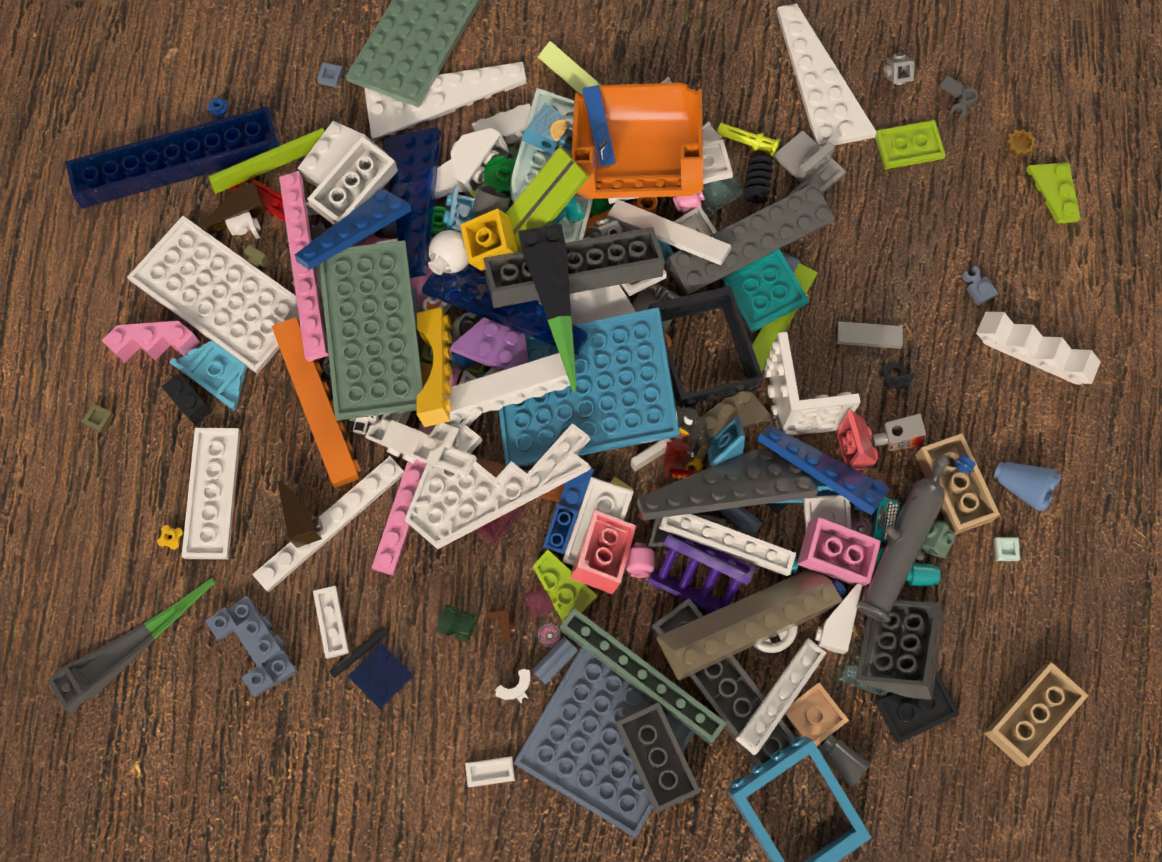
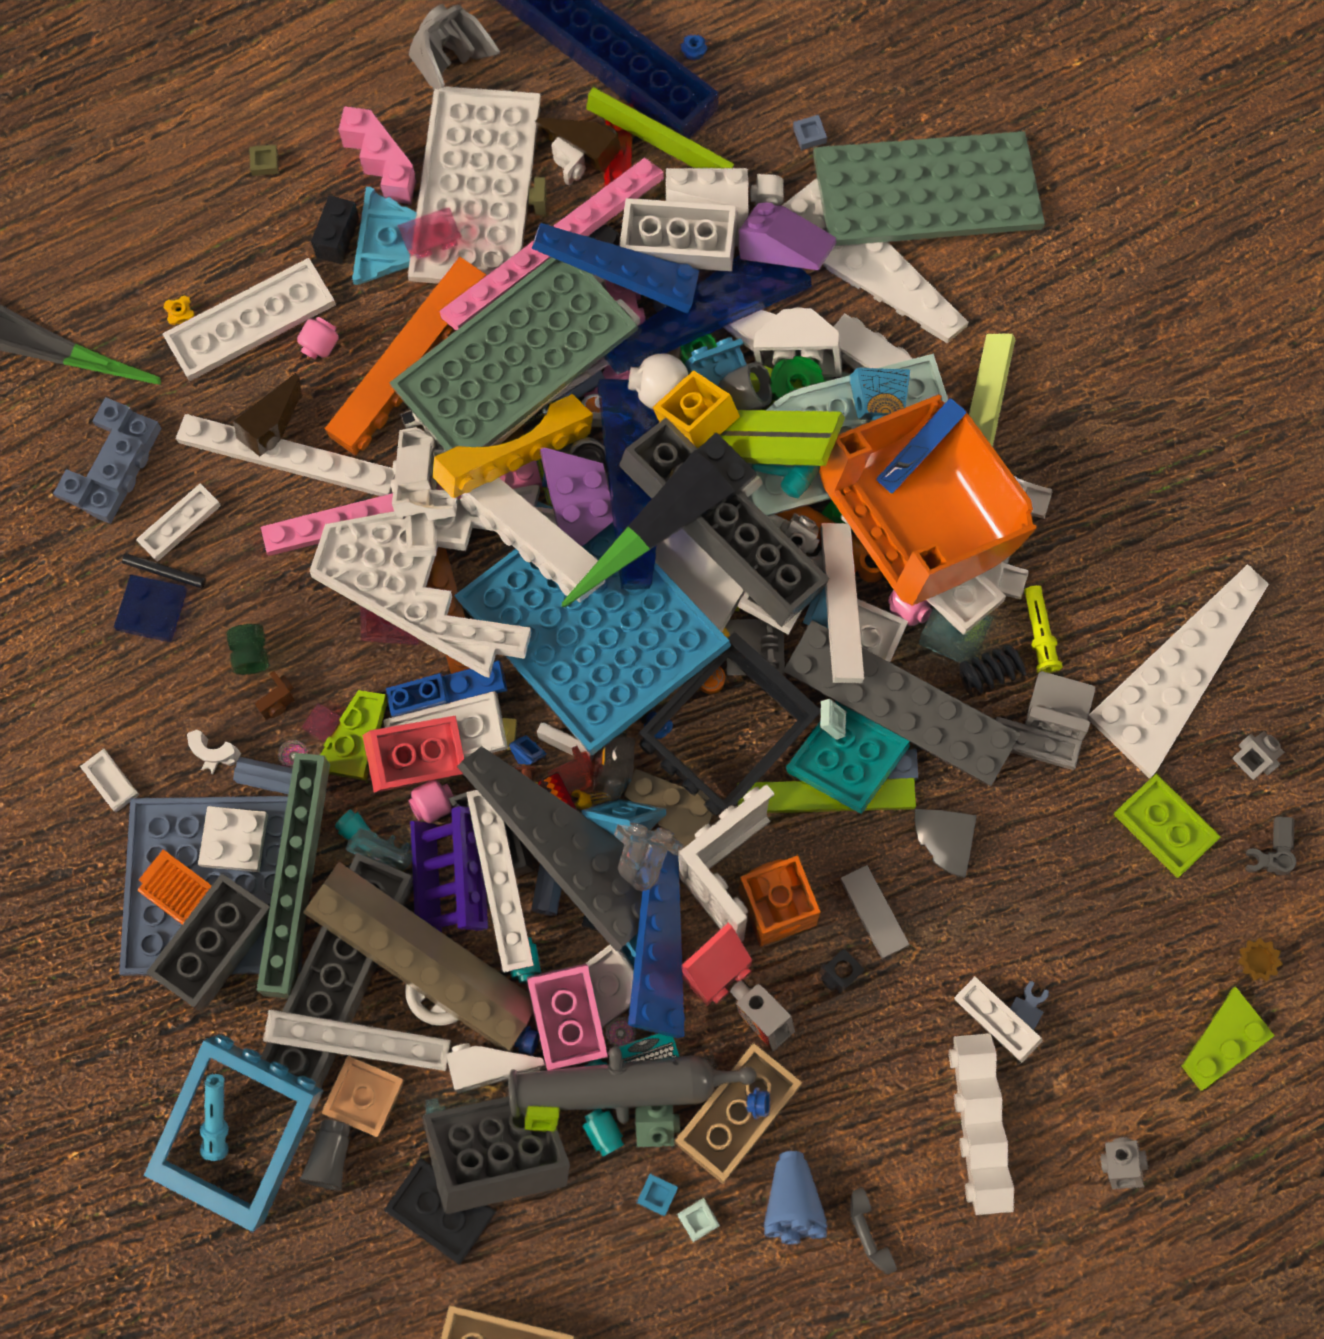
camera: 60 degrees right, 0 degrees up
(96, 249) = (451, 29): none -> light grey piece
(237, 338) = (429, 233): none -> clear pink bracket
(259, 454) = (317, 338): none -> bright pink head
(354, 120) = (767, 189): none -> white plate
(399, 126) = (783, 238): none -> medium lavender slope
(587, 706) = (233, 839): none -> white plate
(599, 765) = (173, 886): none -> orange window
(628, 621) = (350, 824): none -> teal cone
(641, 482) = (526, 750): none -> blue slope
(655, 611) = (370, 845): none -> clear light blue plate
(738, 282) = (833, 719): none -> light aqua tile
(767, 440) = (646, 851): none -> clear pin
(786, 825) = (214, 1127): none -> medium azure pin
(839, 373) = (778, 900): none -> orange brick
(847, 266) = (946, 837): none -> dark grey brick
(899, 604) = (541, 1118): none -> lime tile
(979, 564) = (657, 1195): none -> dark azure plate
(980, 302) = (998, 1019): none -> white plate
(1048, 448) = (880, 1258): none -> dark grey bar
(1103, 284) = (1124, 1163): none -> light grey brick

